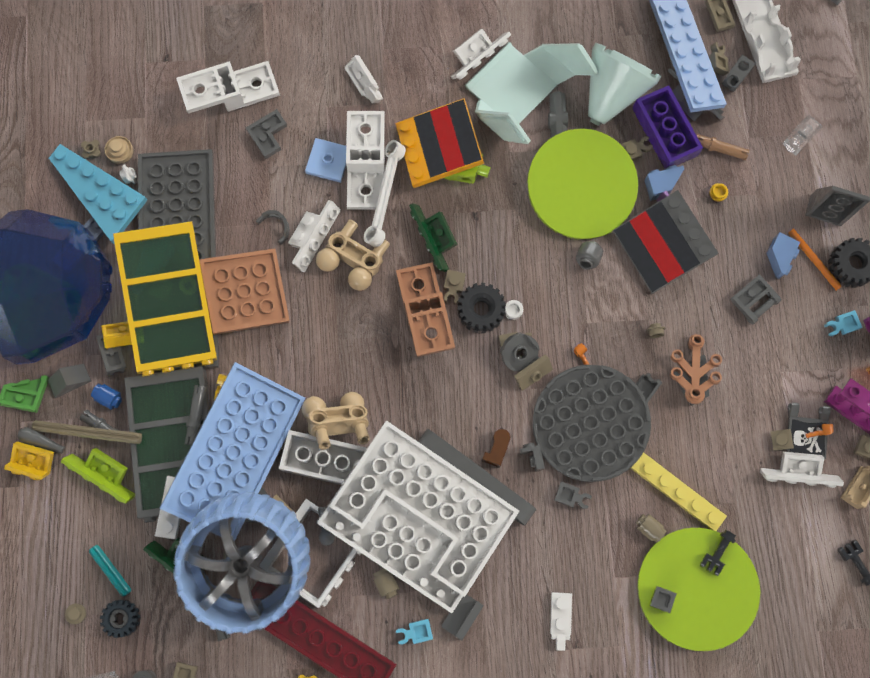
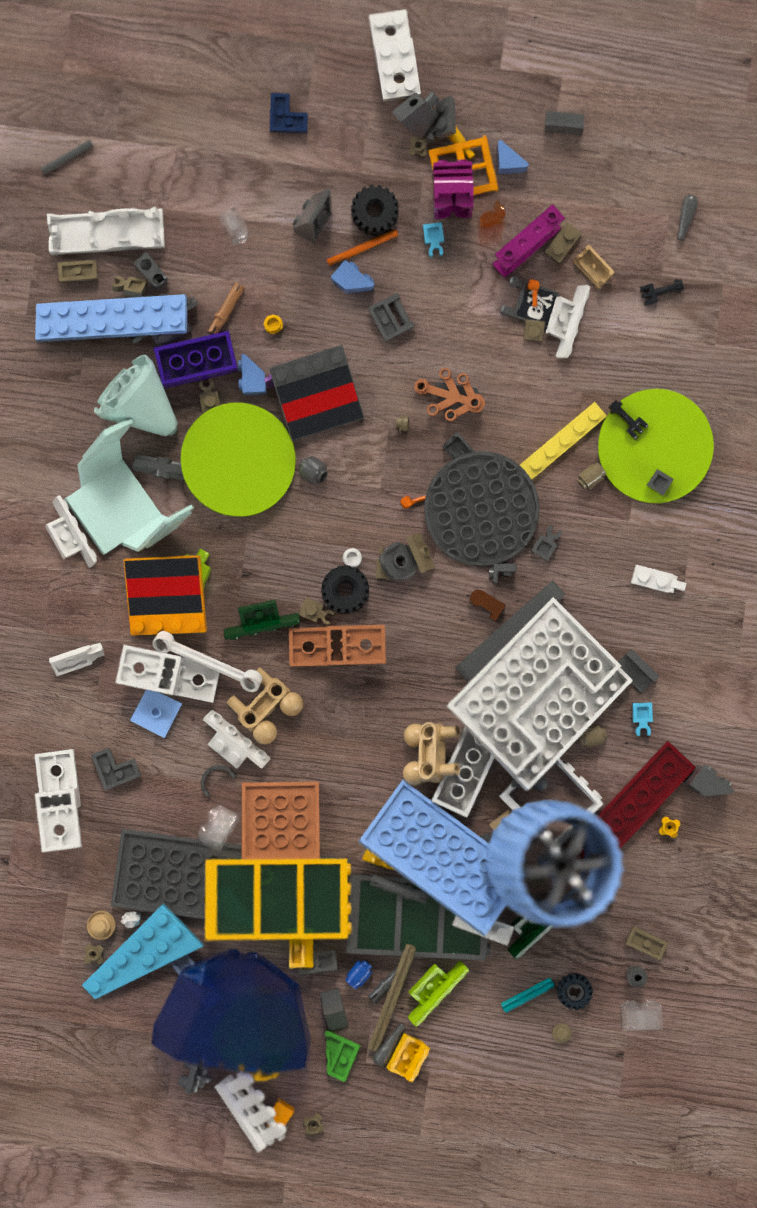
camera: 75 degrees left, 10 degrees up
(227, 234) = (218, 828): none -> clear brick

